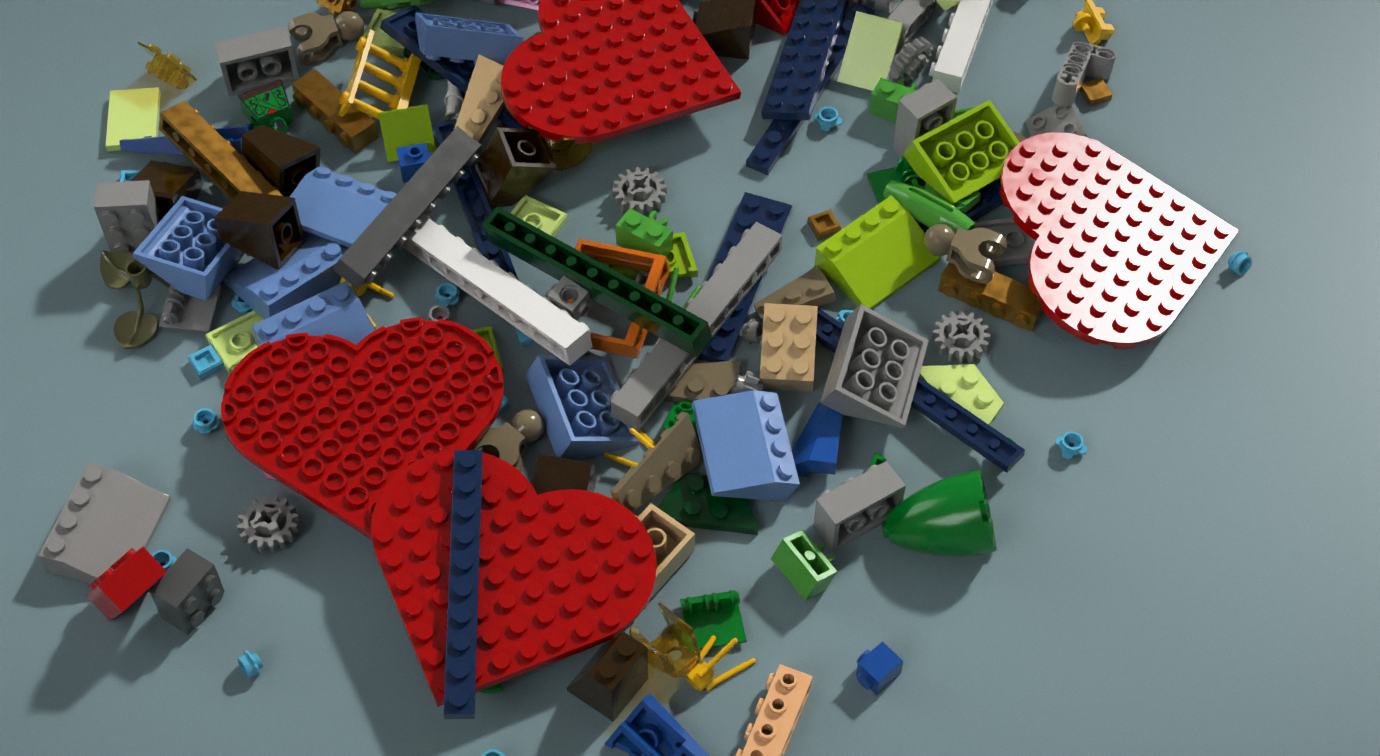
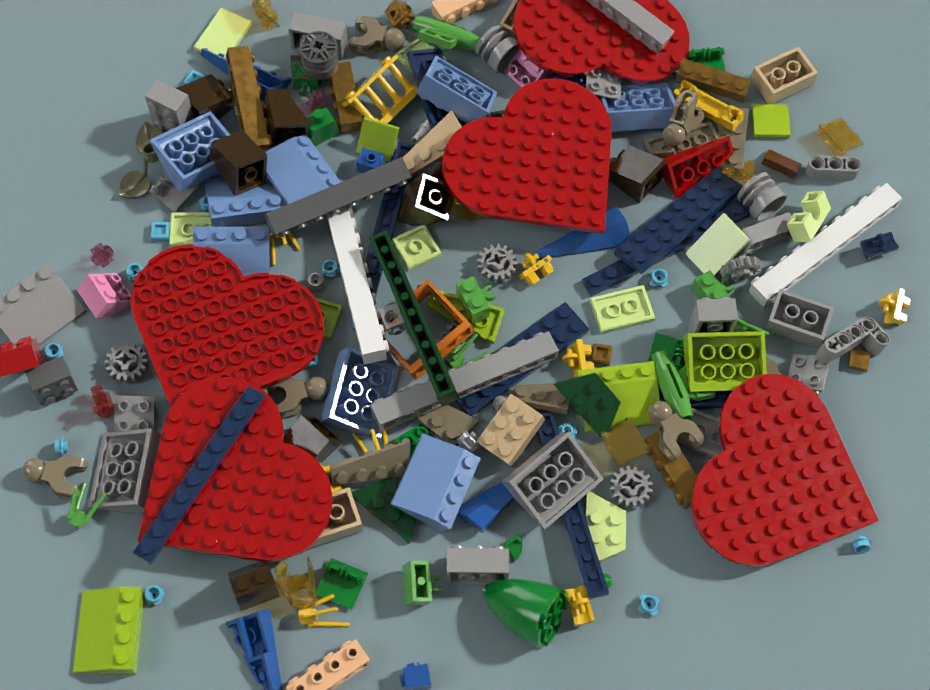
camera: 30 degrees right, 10 degrees up
(150, 422) = (102, 255): none -> clear pink gear
(185, 463) = (104, 294): none -> bright pink slope
(265, 698) = (54, 473): none -> dark tan piece
(268, 581) = (101, 401): none -> clear red hips
(277, 73) = (319, 55): none -> dark grey wheel
(308, 128) = (314, 105): none -> clear pink gear
(320, 576) = (134, 413): none -> light grey hinge
(330, 729) = (76, 516): none -> bright green plant
(334, 147) = (322, 126): none -> green torso
(356, 644) = (125, 470): none -> light grey slope
(693, 168) = (529, 274): none -> yellow hips
(725, 118) = (583, 242): none -> blue wedge
(802, 238) = (576, 357): none -> yellow hips
(811, 169) = (622, 309): none -> yellowish green tile
(856, 270) = (591, 400): none -> dark green wing
(921, 293) = (624, 442): none -> clear yellow piece
(1003, 486) = (579, 606): none -> yellow hips
(1008, 79) = (799, 319): none -> light grey brick

